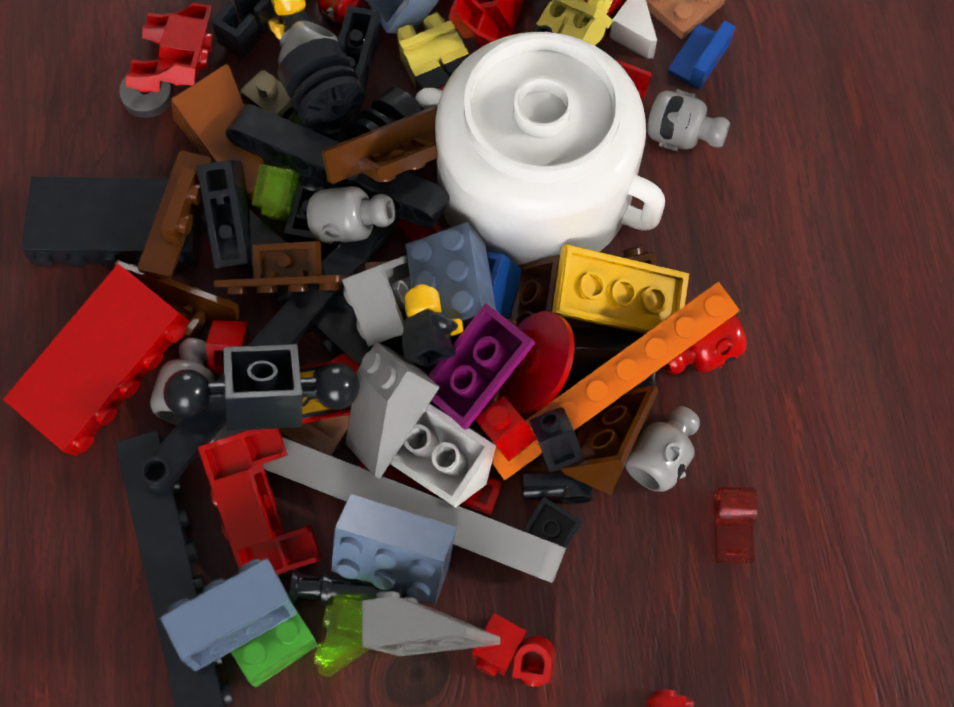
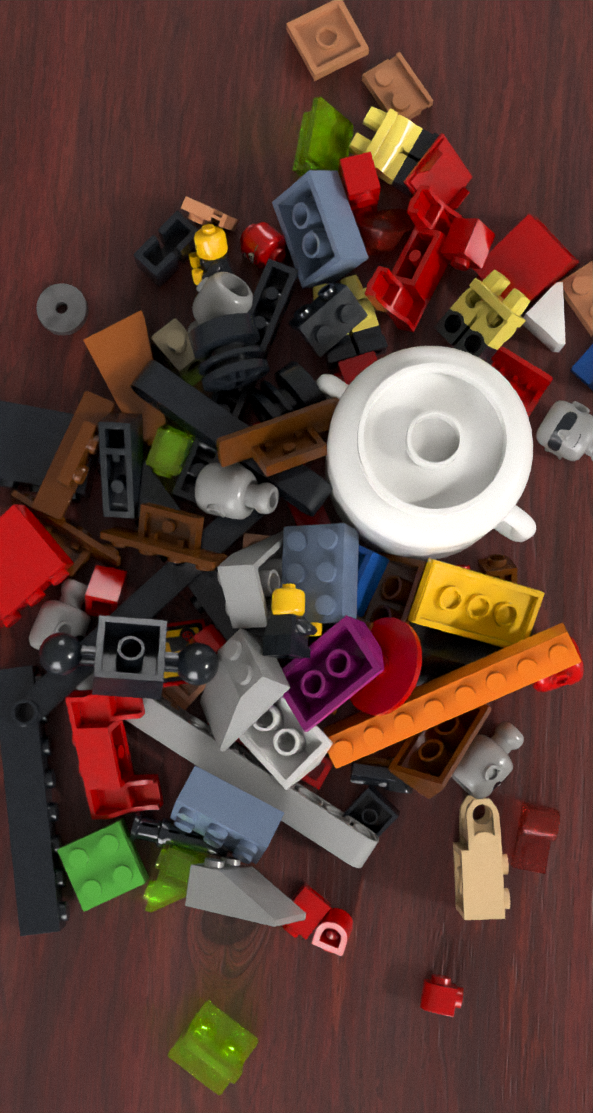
camera: 10 degrees right, 15 degrees up
(182, 49) = (101, 279): red bracket -> none
(228, 614) = (71, 864): sand blue brick -> none
(417, 48) = (328, 317): none -> black bracket
(506, 428) = (344, 733): red brick -> none
(556, 439) = (388, 746): black bracket -> none
(680, 553) = (480, 863): none -> tan brick

